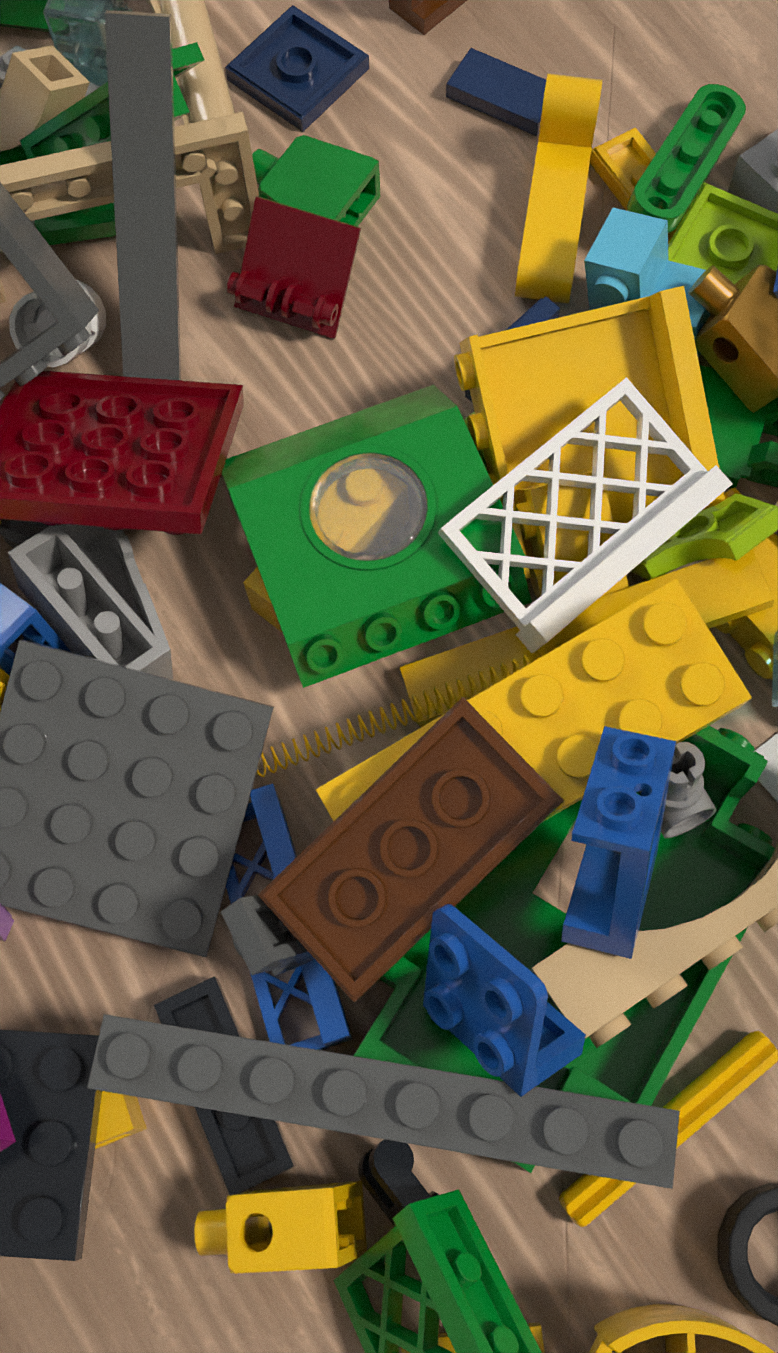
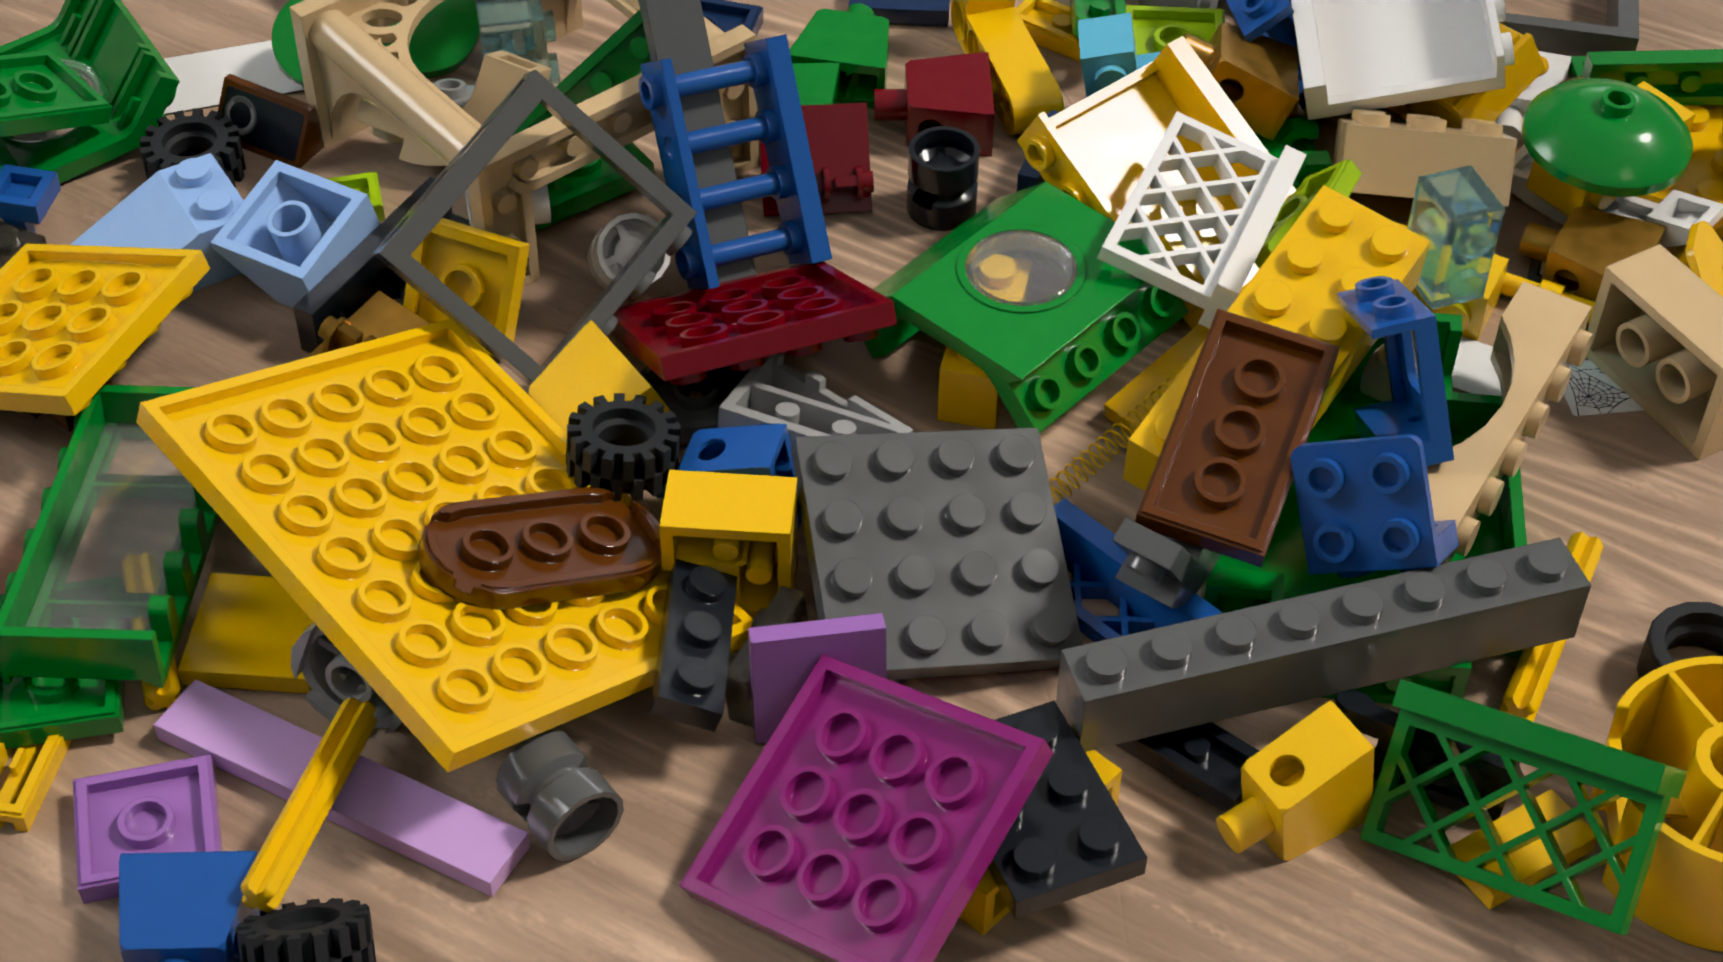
camera: 30 degrees left, 25 degrees down
(223, 240) = (776, 124): none -> blue fence
(401, 335) = (942, 177): none -> black wheel
(411, 140) = (856, 42): none -> green torso
(463, 239) = (943, 93): none -> dark red torso

